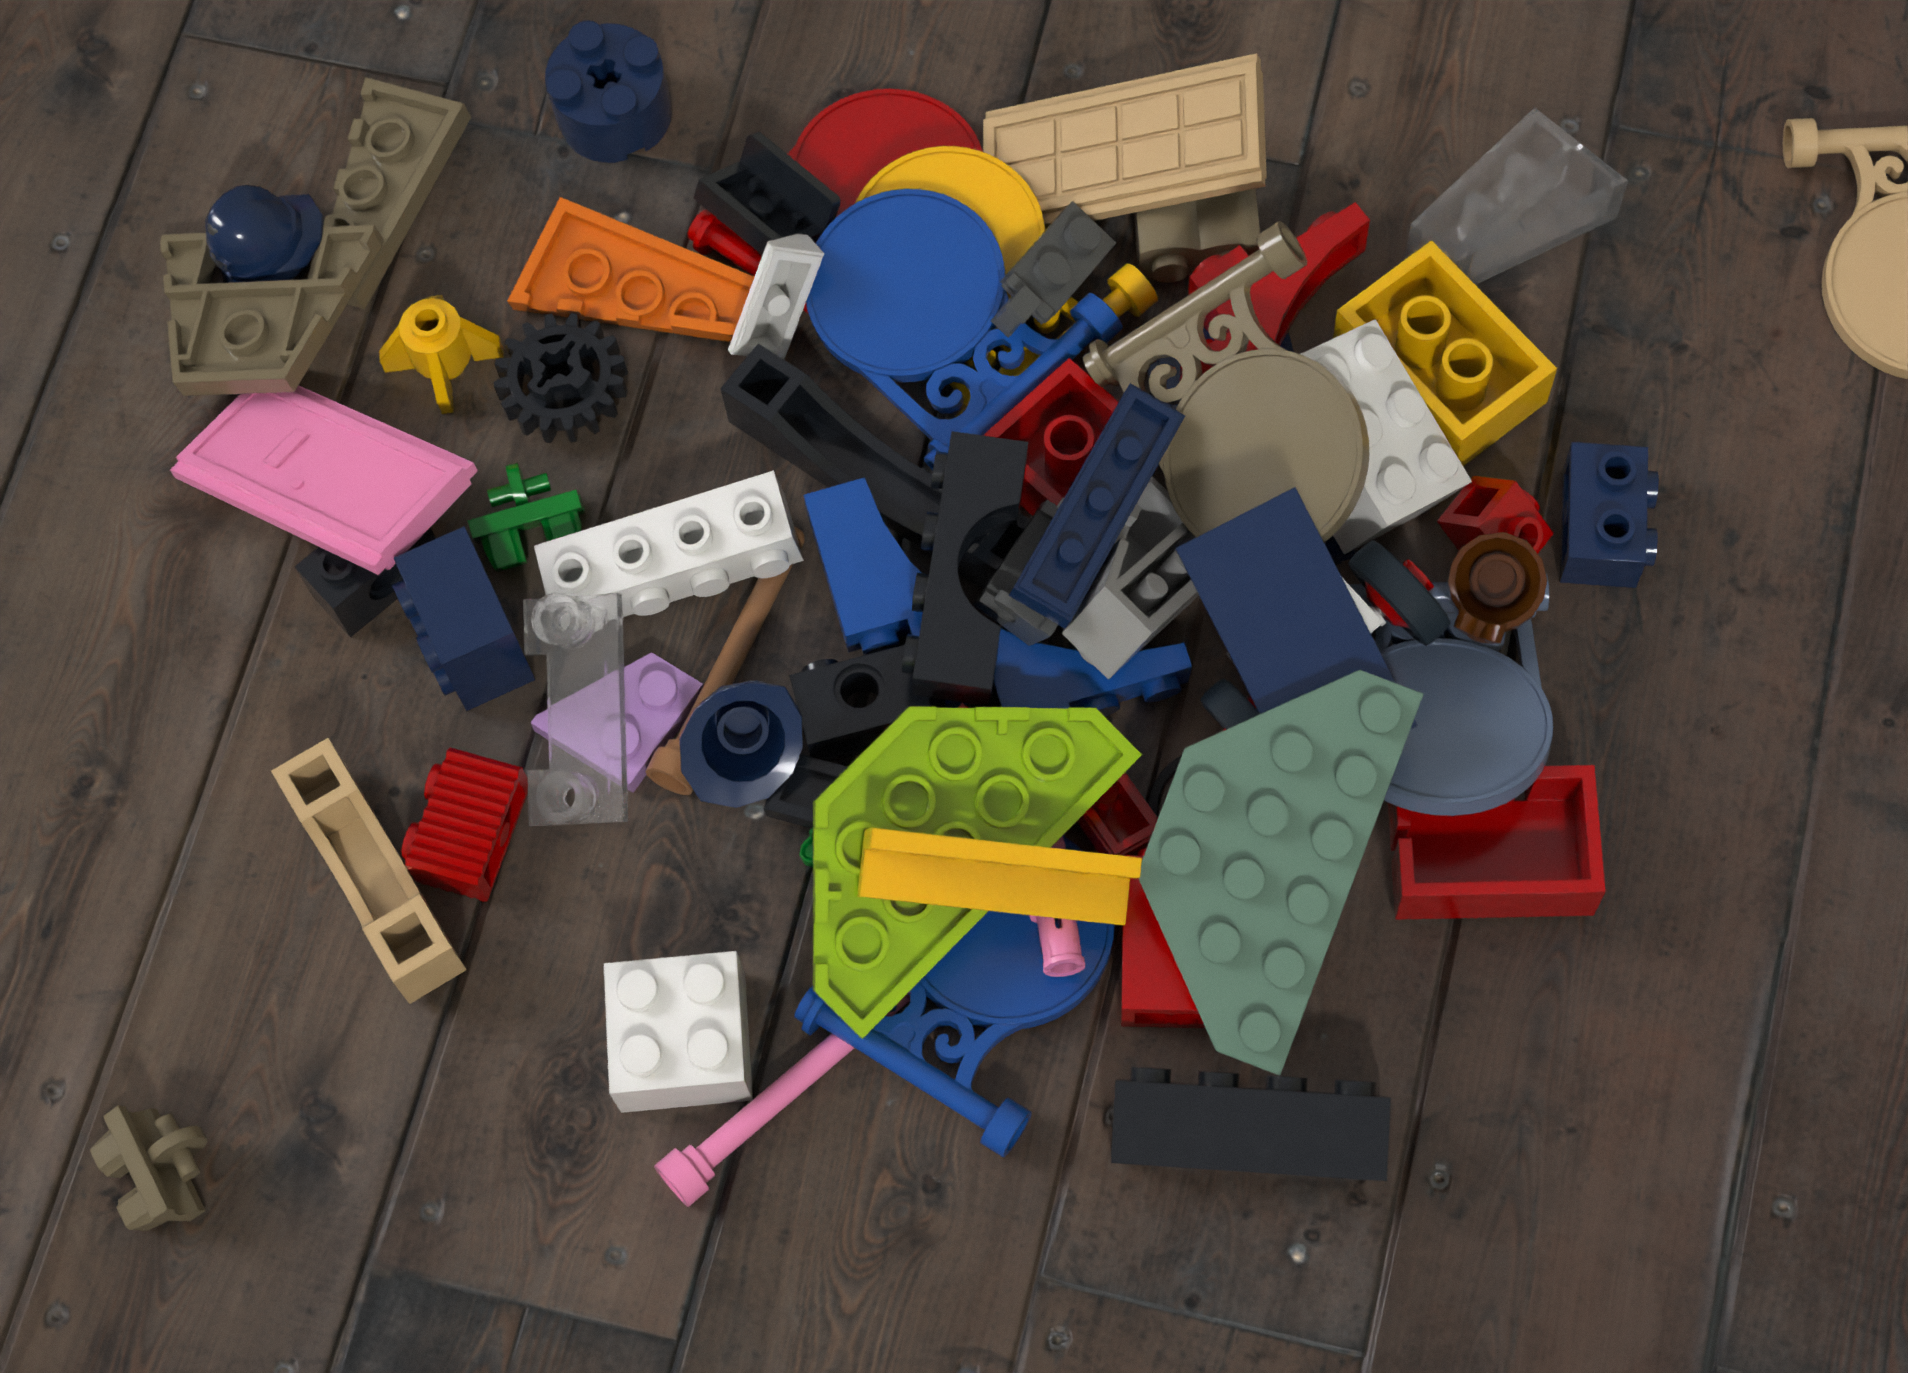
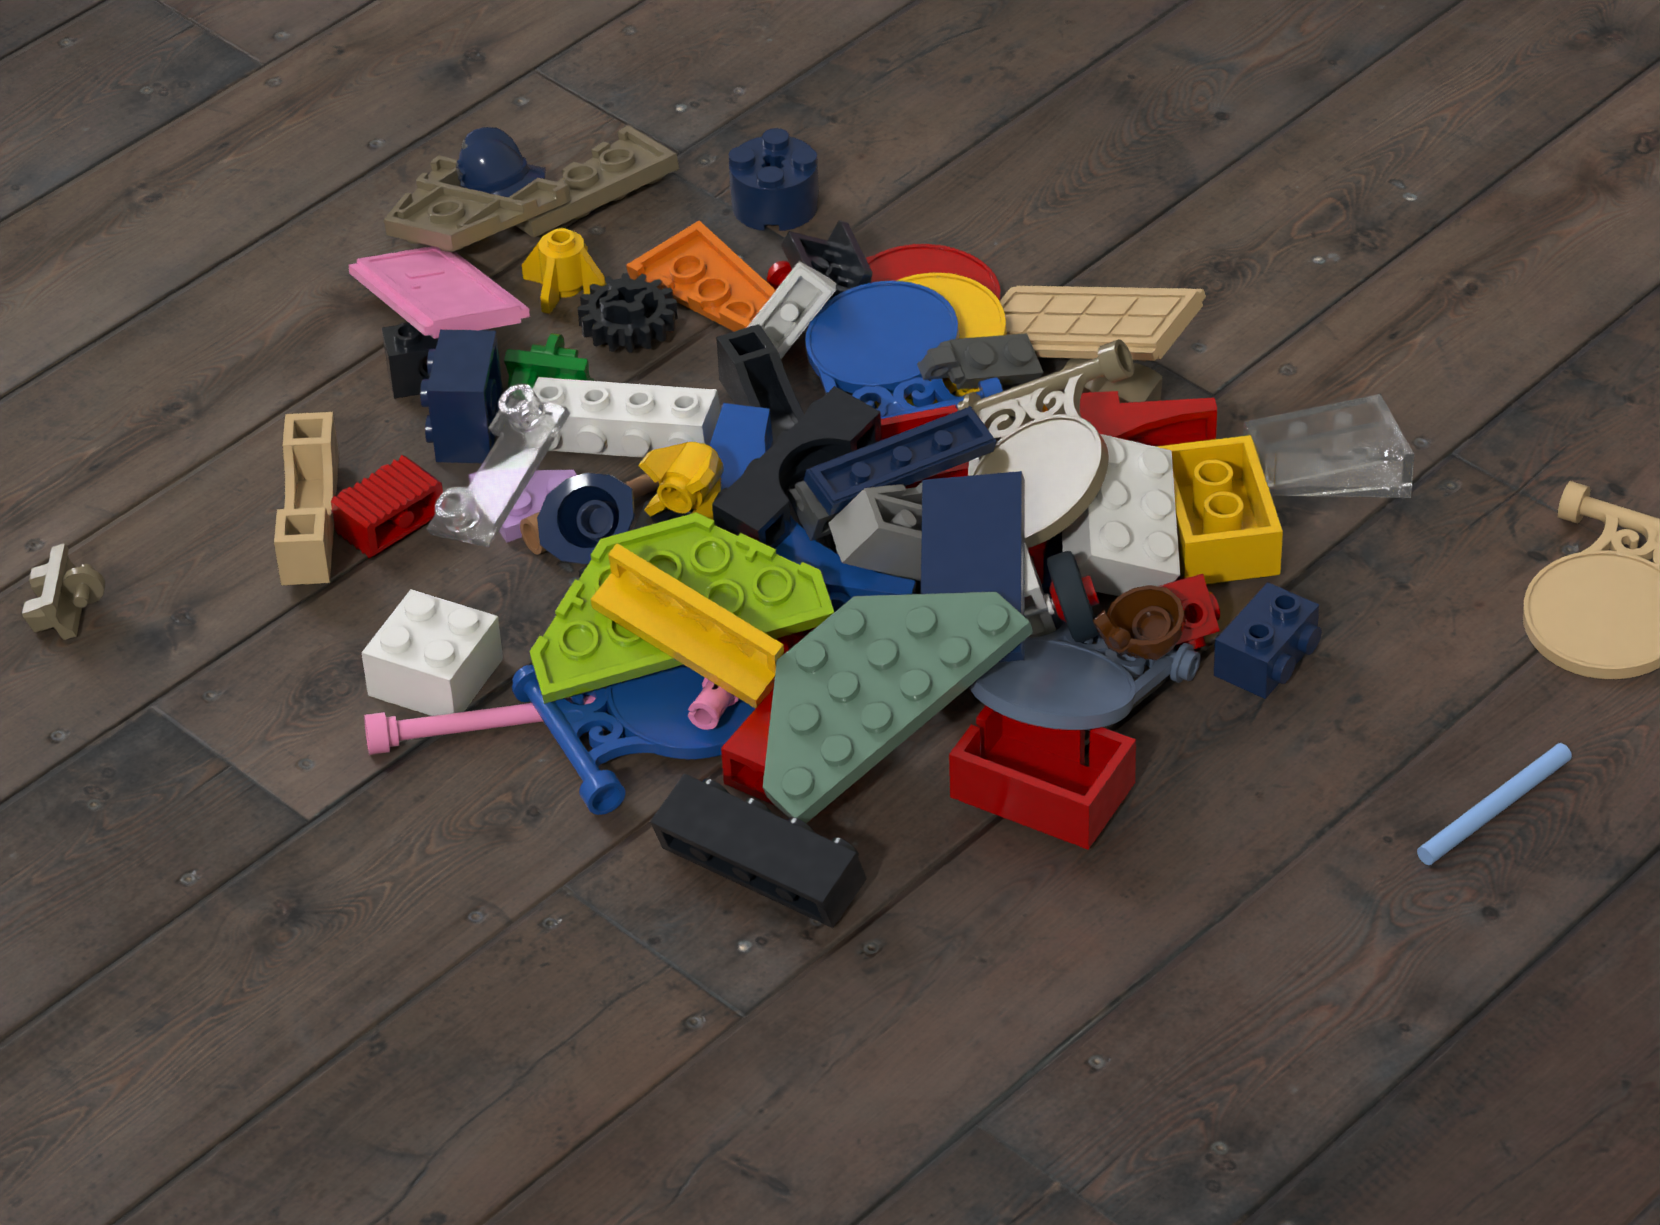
camera: 25 degrees right, 25 degrees down
(845, 645) = (686, 476): none -> yellow brick

